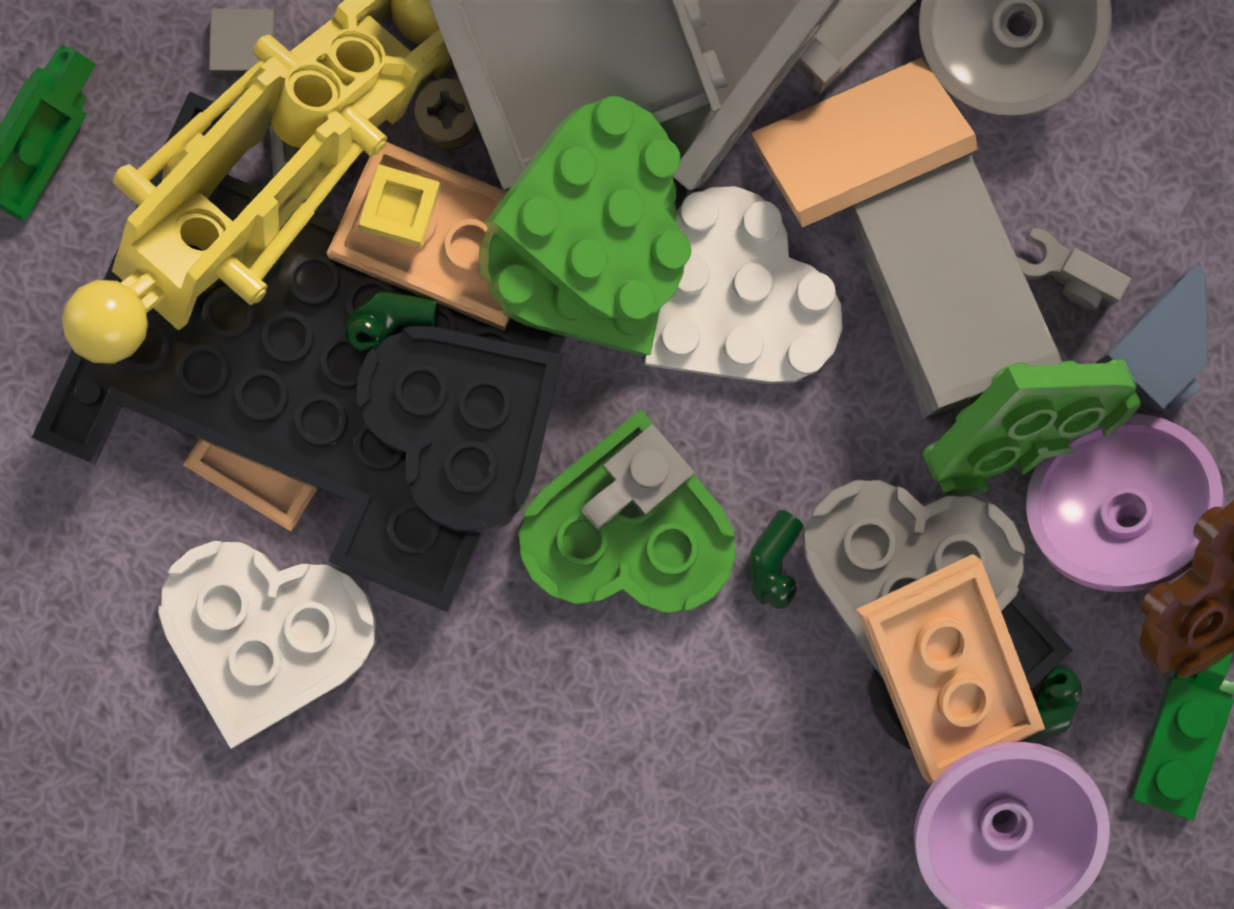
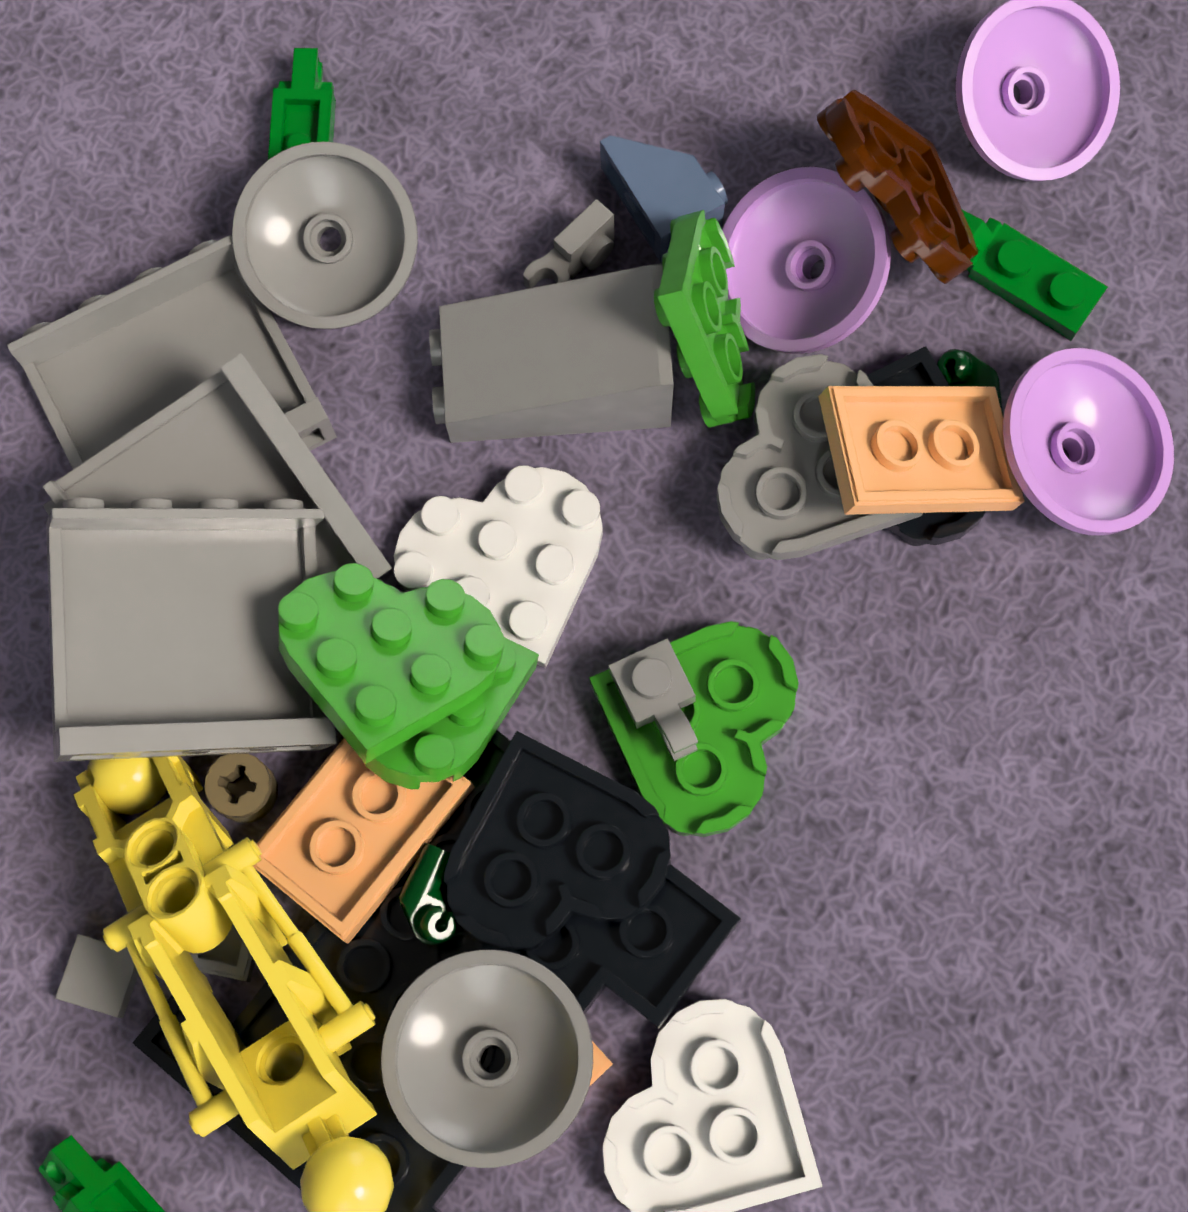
camera: 70 degrees left, 10 degrees down
(225, 377) = (437, 1048): none -> light grey dish
(399, 206) = (320, 849): light yellow plate -> none
(767, 557) = (763, 599): dark green arm -> none
(863, 141) = (395, 402): light nougat tile -> none

